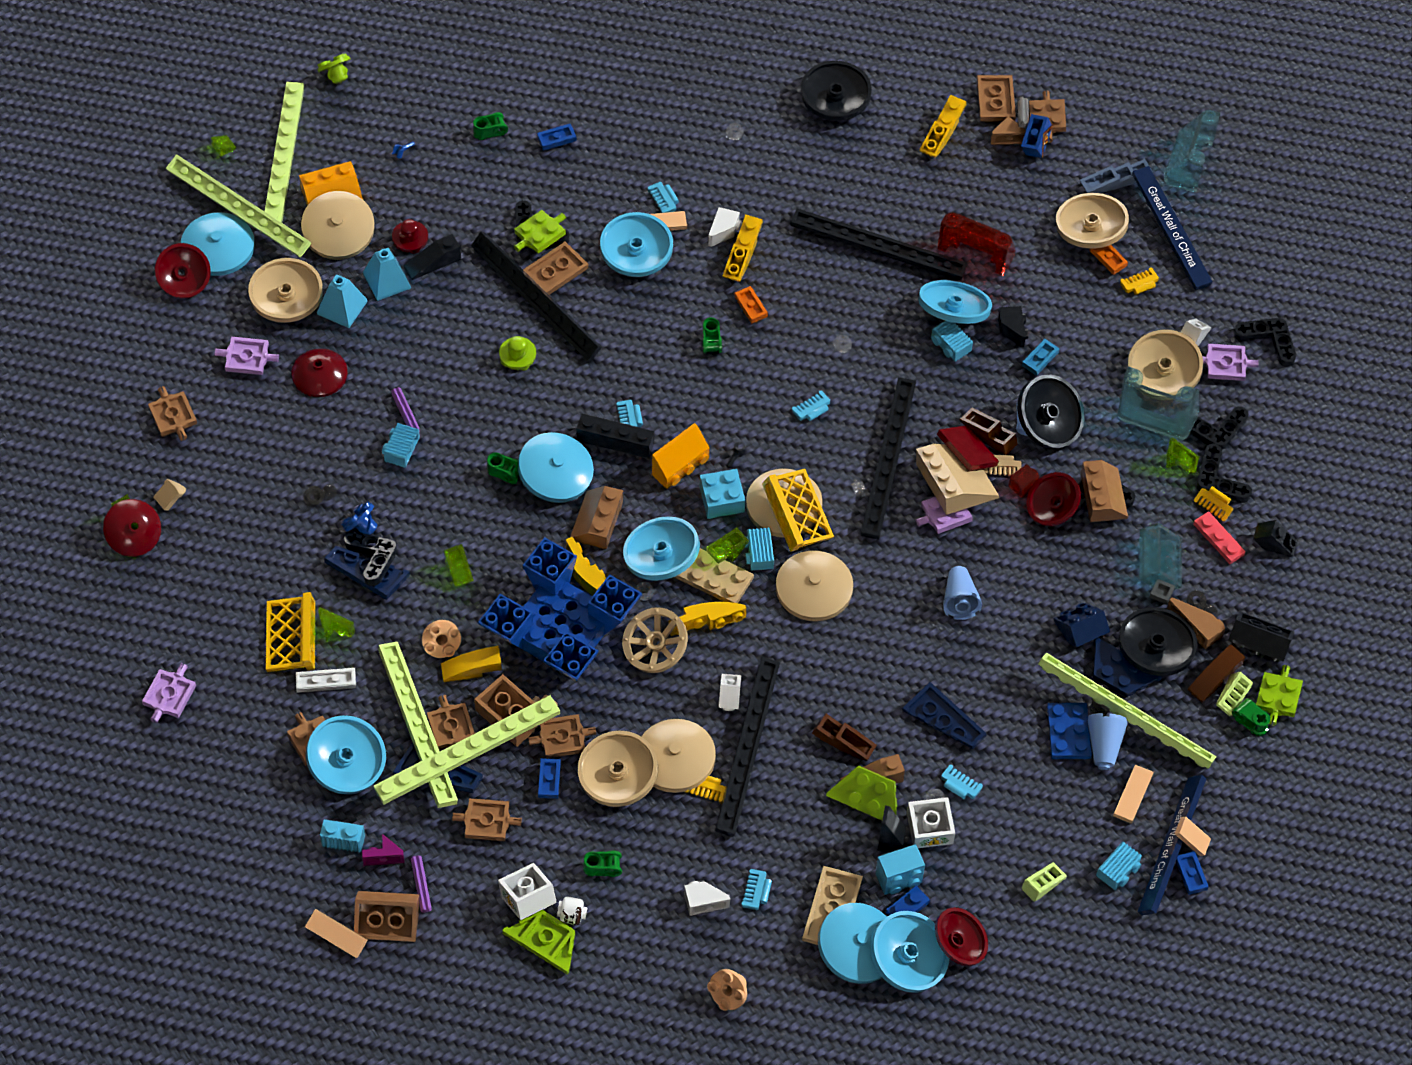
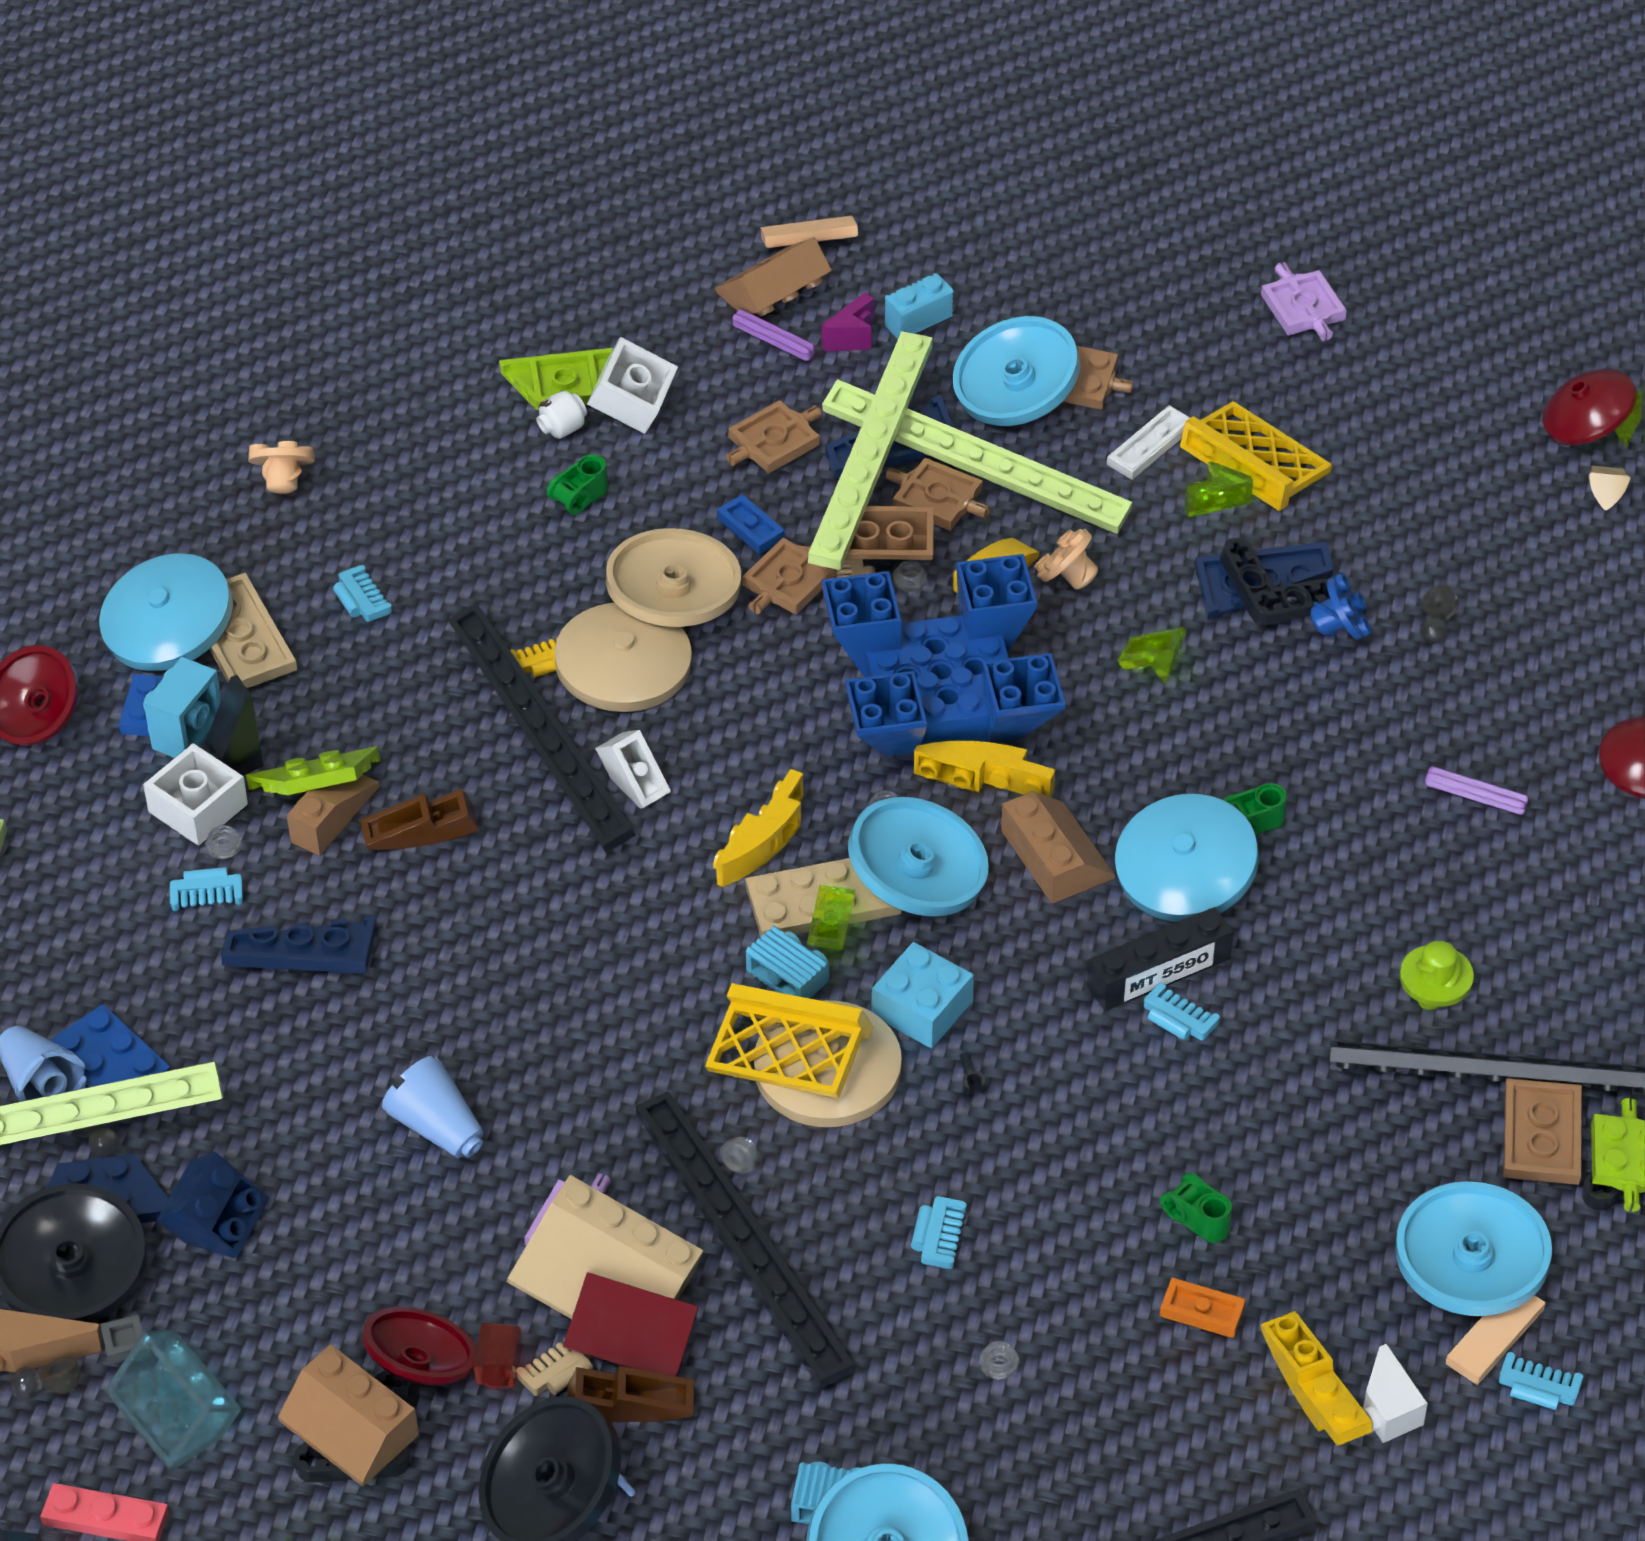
camera: 140 degrees right, 10 degrees down
(401, 445) = (1420, 738): medium azure brick -> none
(652, 638) = (794, 754): tan wheel -> none
(680, 456) = (1031, 991): light orange slope -> none
(704, 898) = (413, 533): white slope -> none
(814, 585) = (662, 986): tan dish -> none
(908, 952) = (98, 627): medium azure dish -> none

